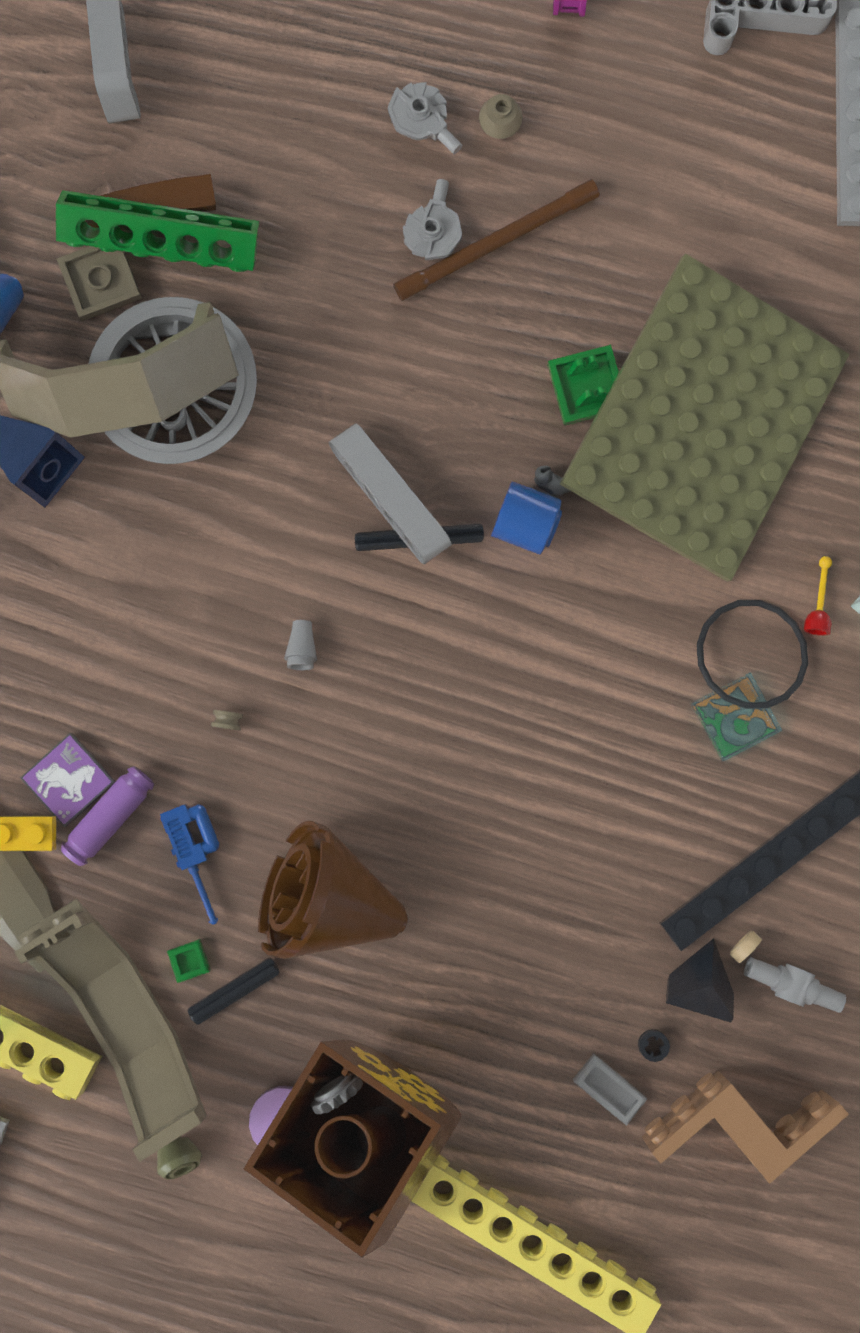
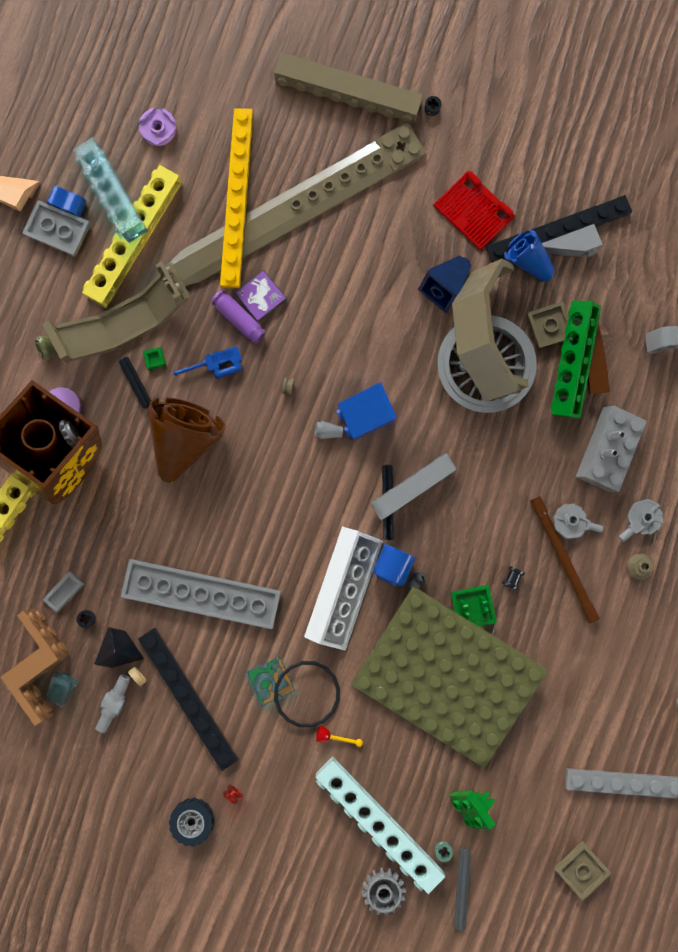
camera: 90 degrees right, 0 degrees up
(265, 579) = (366, 412): none -> blue slope
(307, 168) = (611, 448): none -> light grey piece
(534, 321) = (513, 578): none -> black bush
(571, 603) = (343, 589): none -> white slope
(596, 847) = (201, 594): none -> light grey plate
(776, 1078) = (61, 688): none -> clear light blue slope

